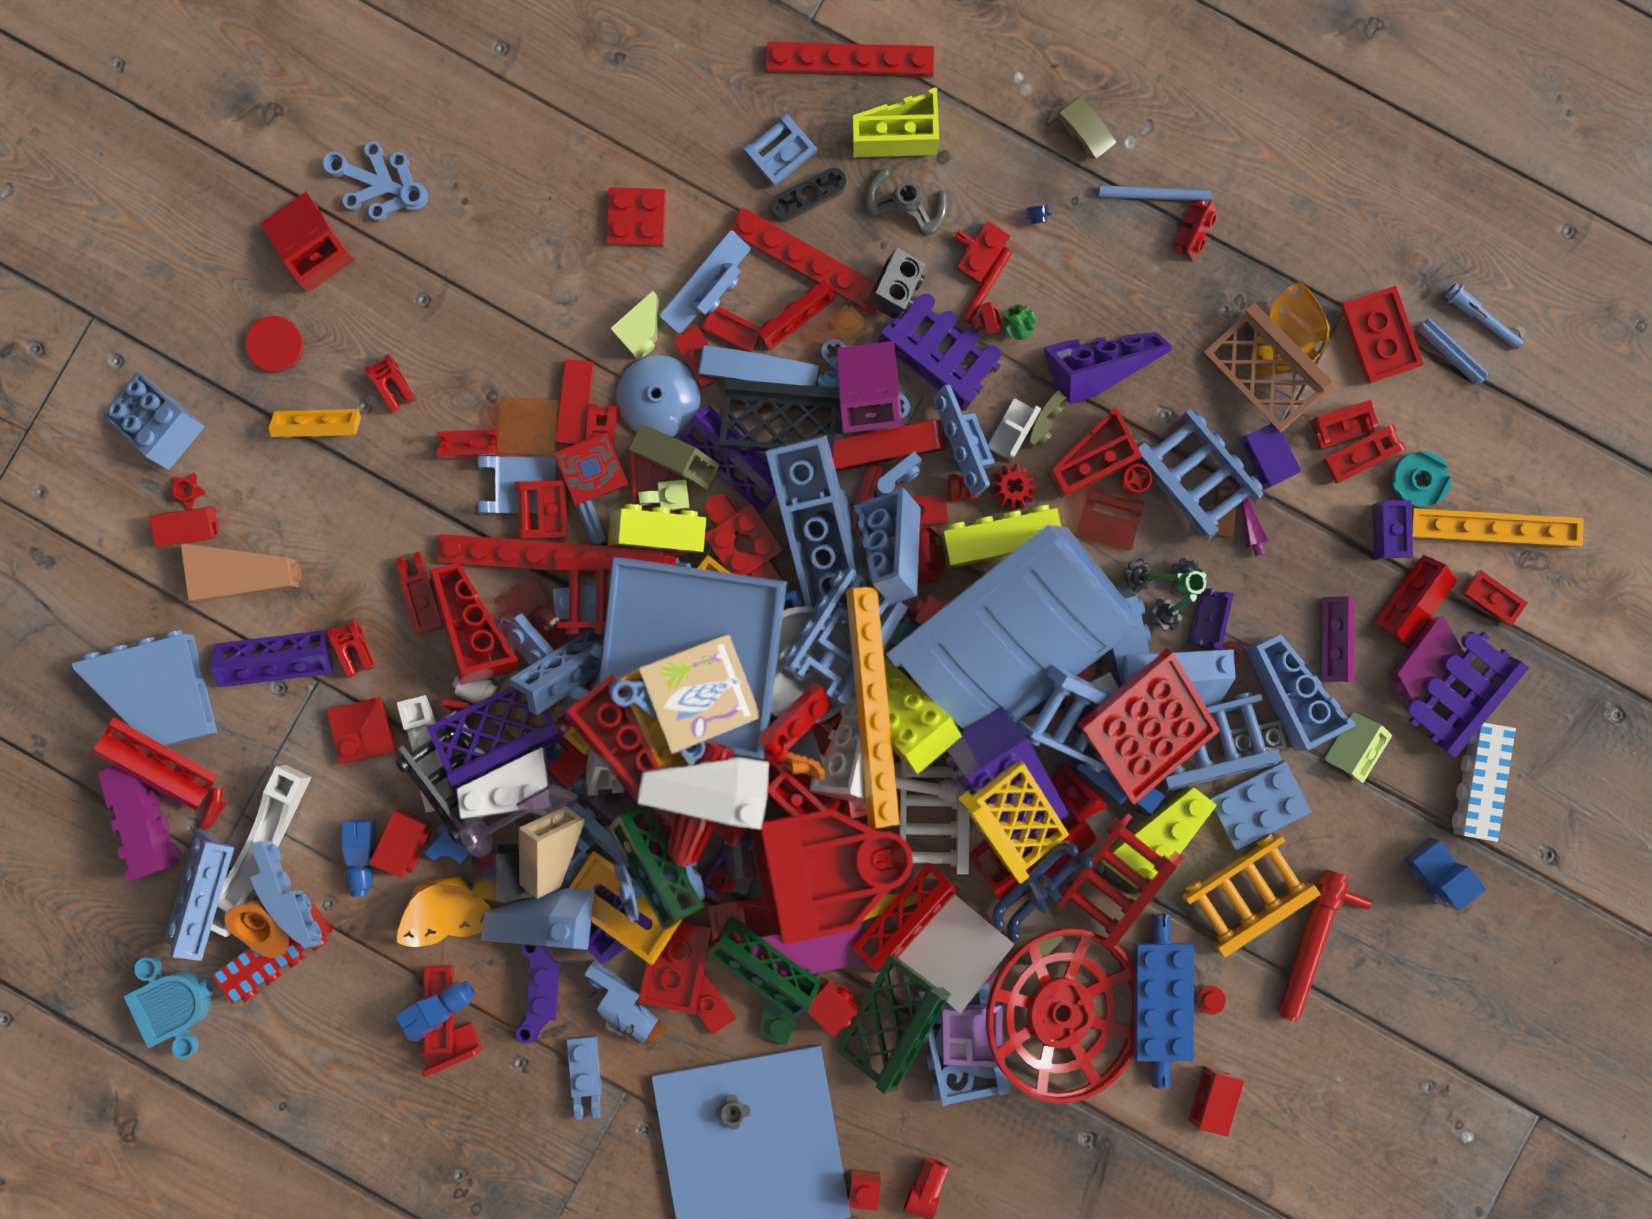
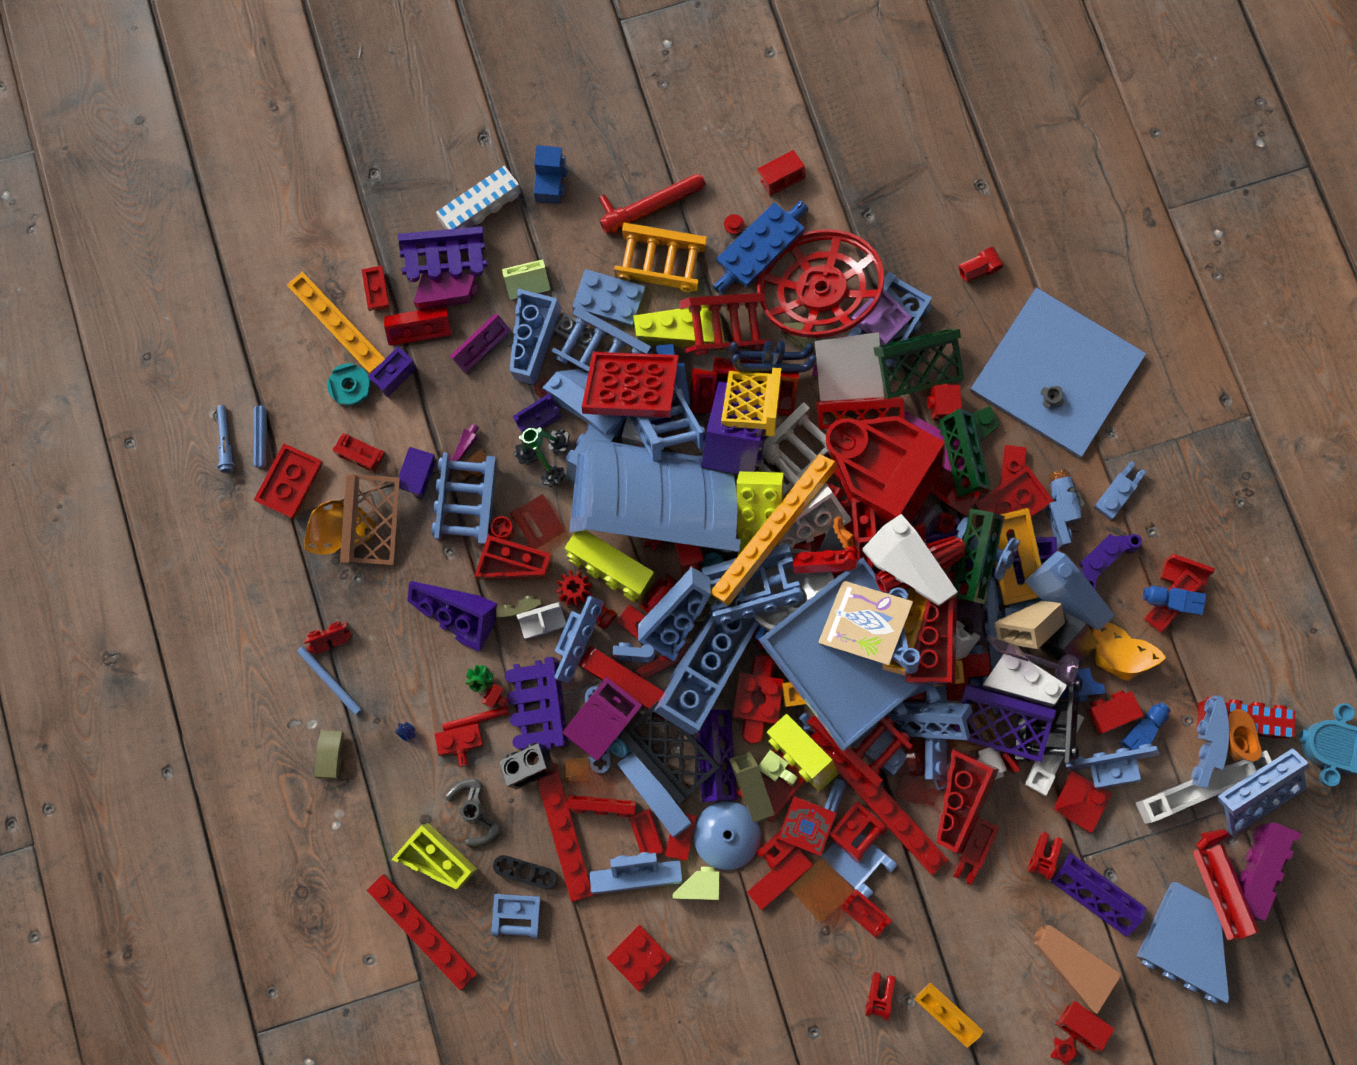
camera: 135 degrees left, 10 degrees down
(352, 788) = (1115, 768): none -> medium blue bracket
(864, 1189) = (1015, 294): red brick -> none
(1363, 454) = (364, 426): red plate -> none

